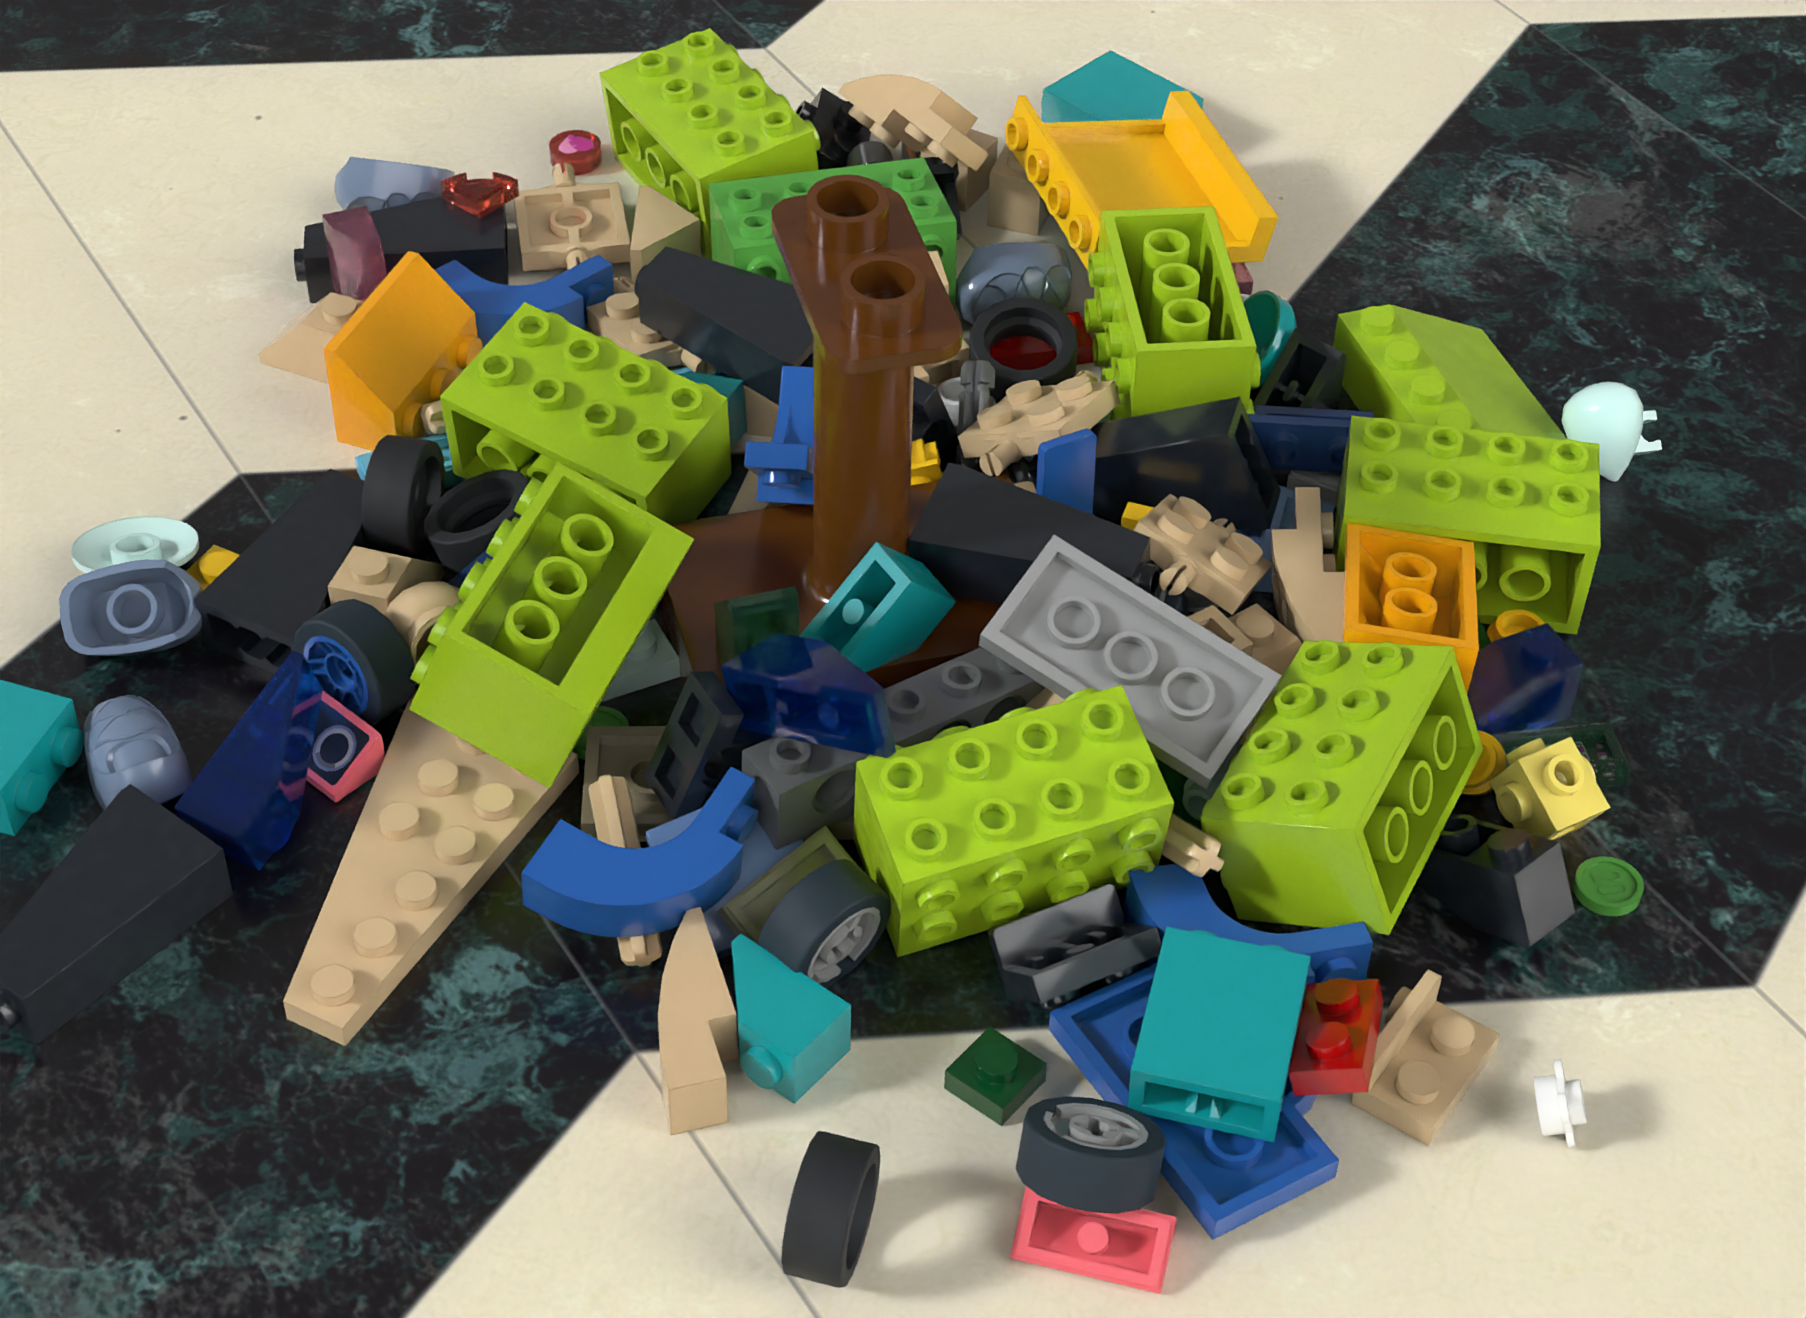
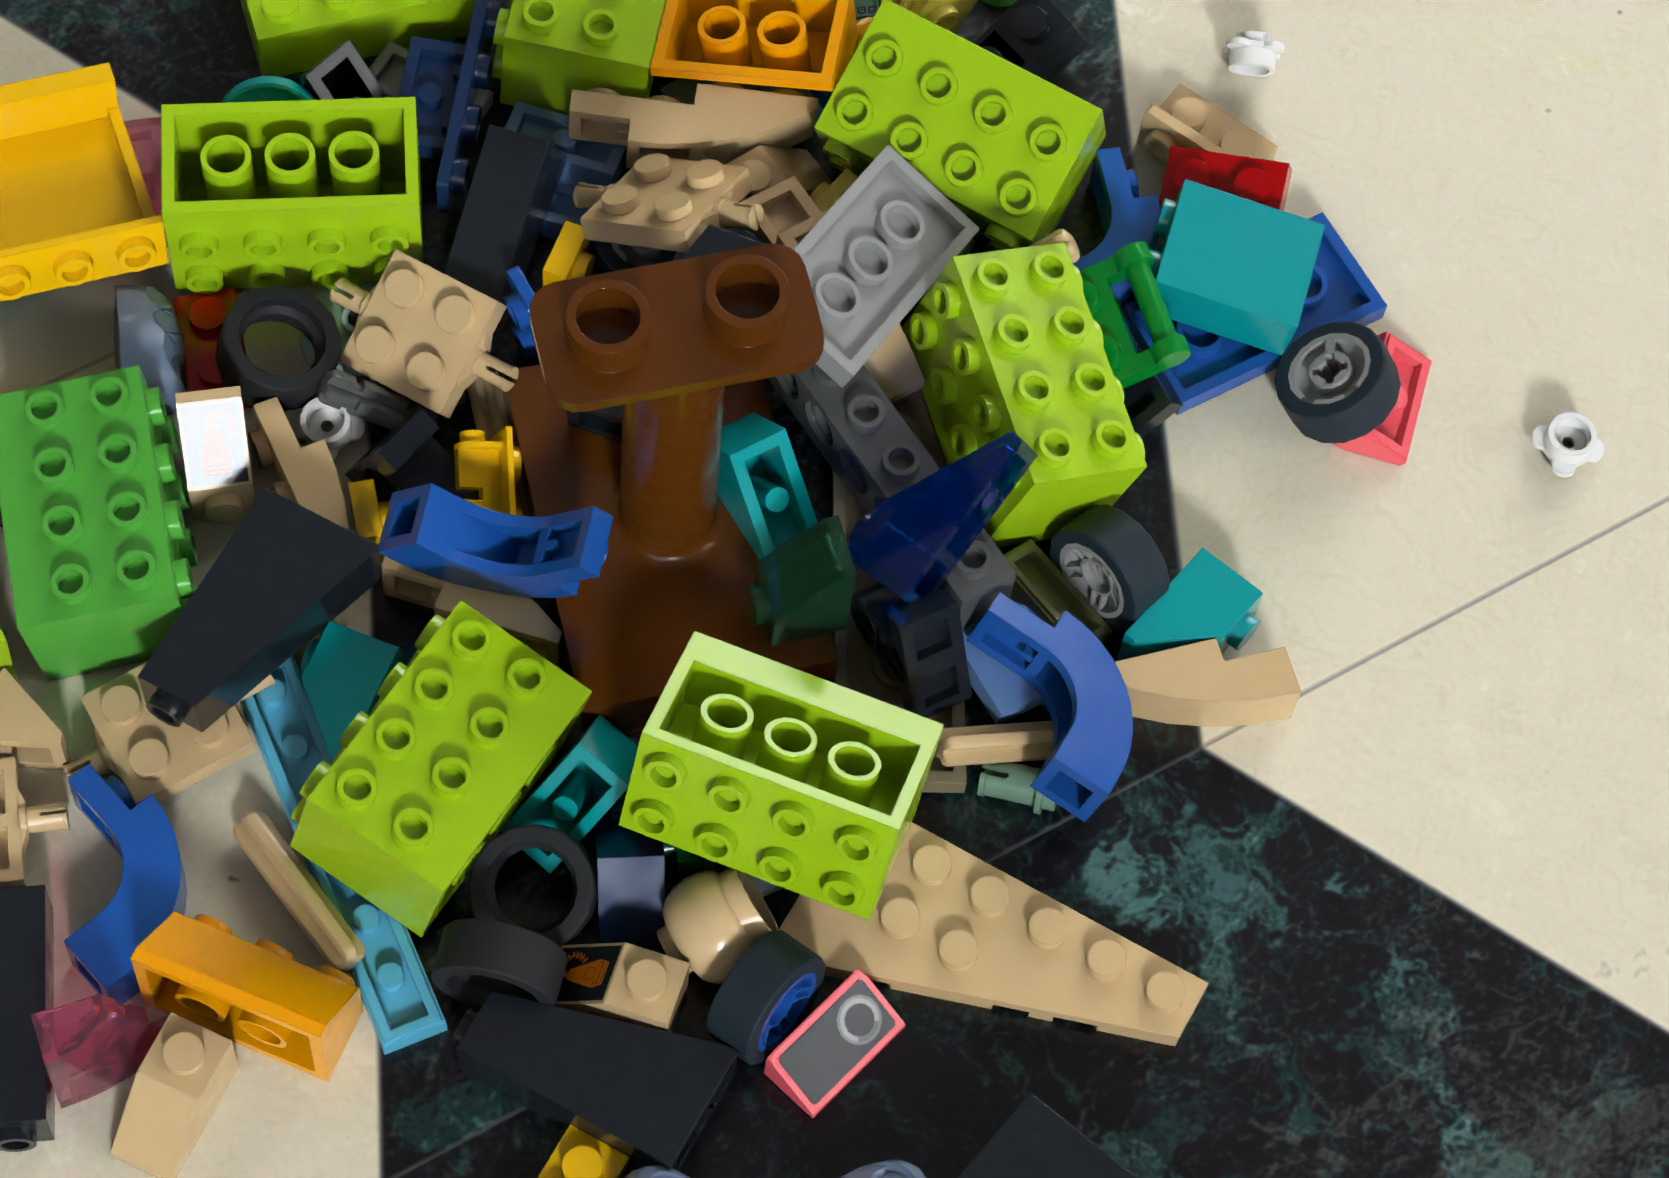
camera: 95 degrees left, 20 degrees up
(258, 775) = (924, 1080): clear blue slope -> none
(830, 1209) = (1408, 571): black tyre -> none
(995, 1076) = (1227, 459): dark green plate -> none
(1115, 904) = (1126, 362): none -> green plate

